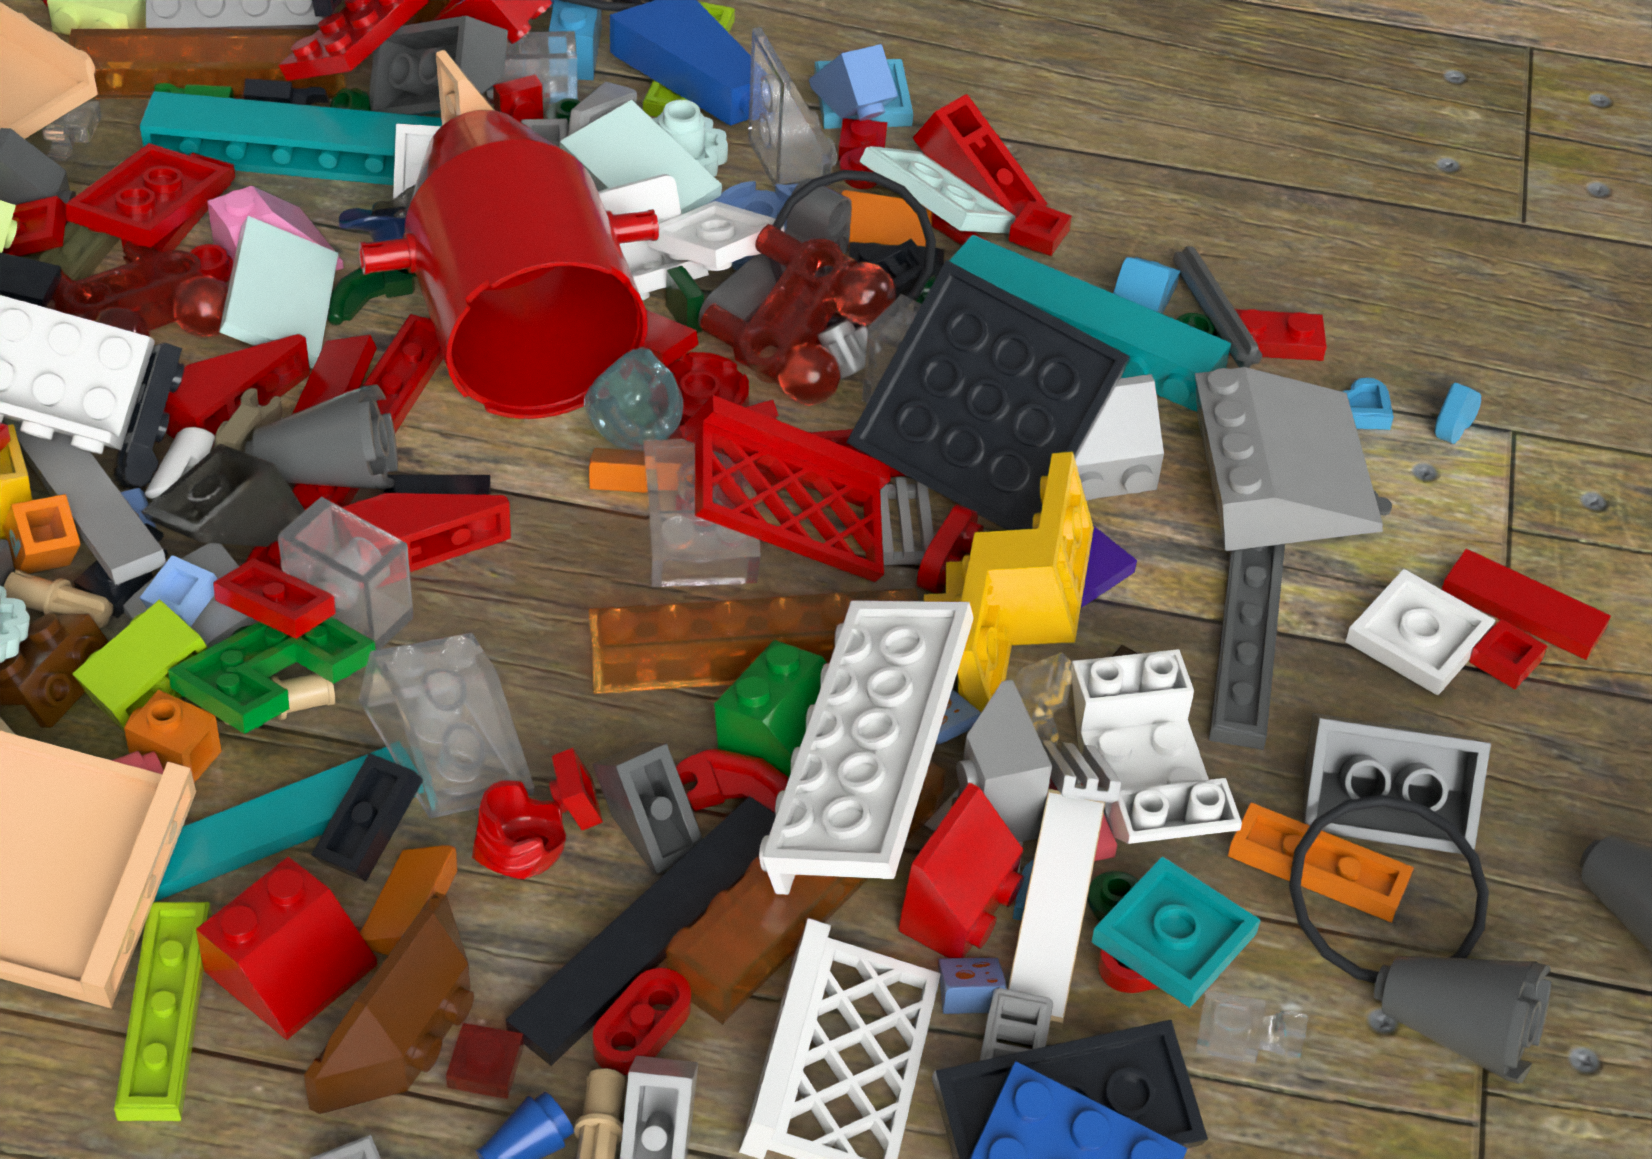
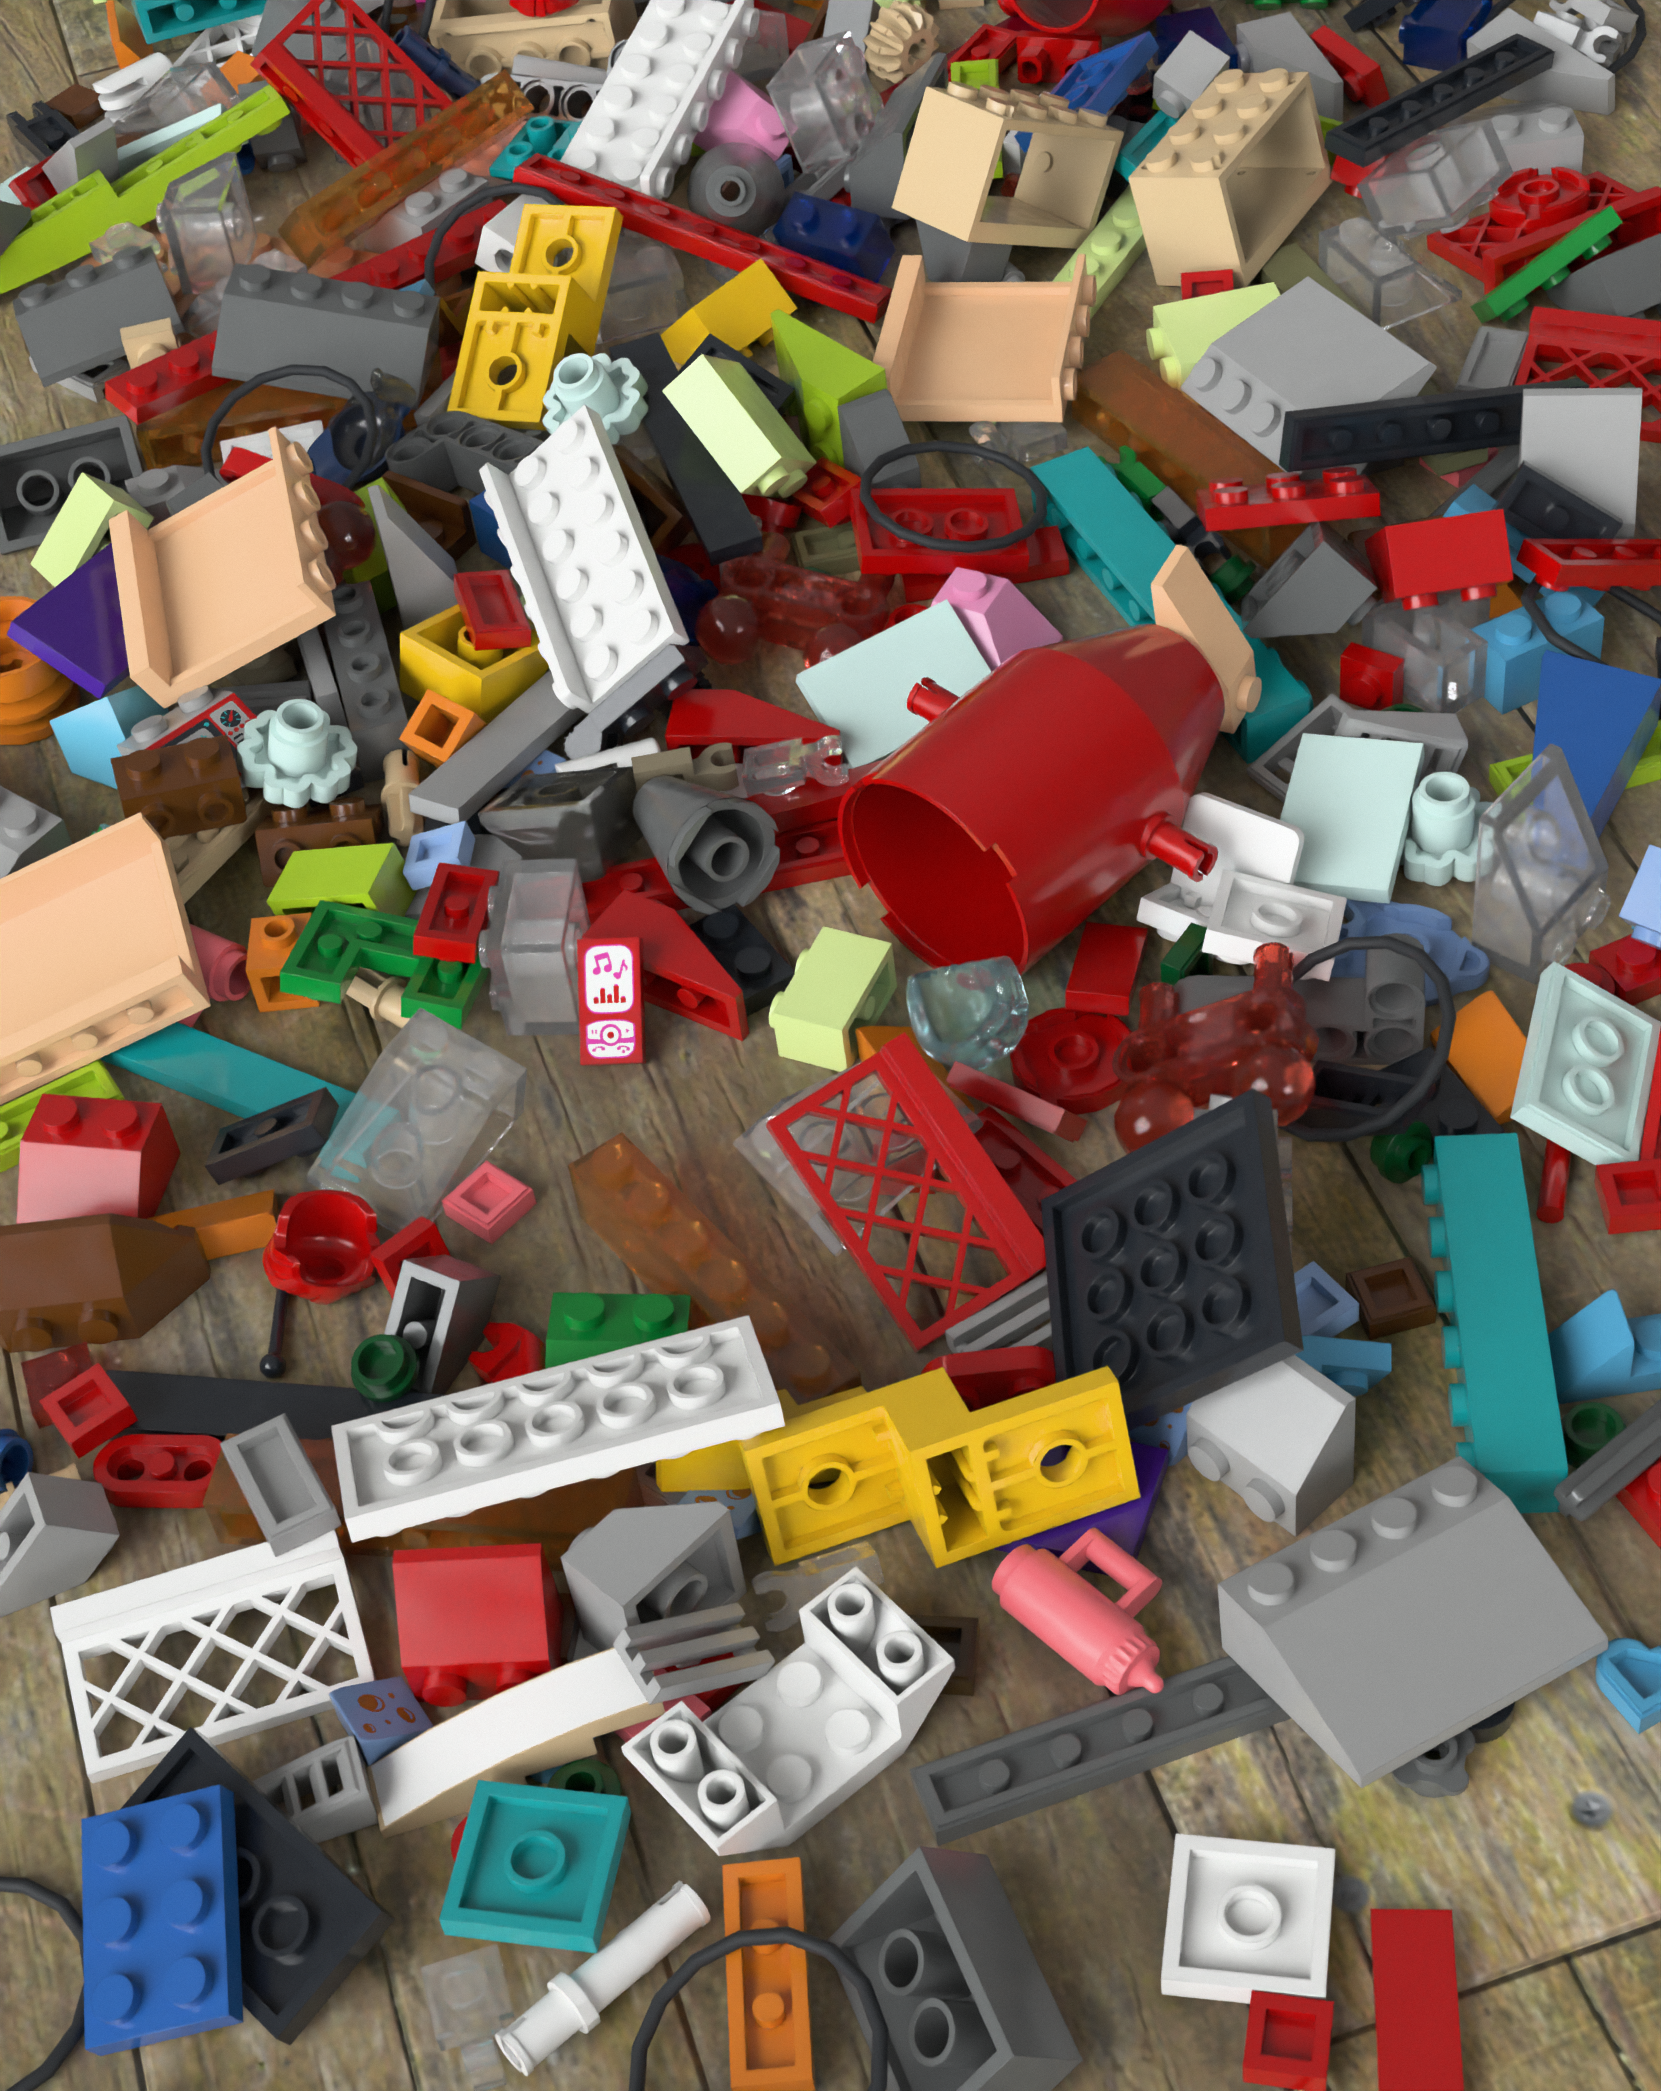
camera: 70 degrees right, 0 degrees up
(136, 201) = (945, 544): none -> black piece
(300, 376) = (786, 764): none -> clear plate
(439, 572) = (611, 1001): none -> tile
(498, 884) = (273, 1364): none -> black hinge
(540, 466) = (834, 991): none -> yellowish green brick
(542, 731) = (489, 1202): none -> coral tile
(559, 1034) = (88, 1410): none -> red plate
(674, 839) = (384, 1367): none -> dark green plate
(754, 930) = (280, 1485): none -> light grey tile
(1162, 596) = (1077, 1618): none -> coral piece
(1275, 963) = (578, 1998): none -> white pin

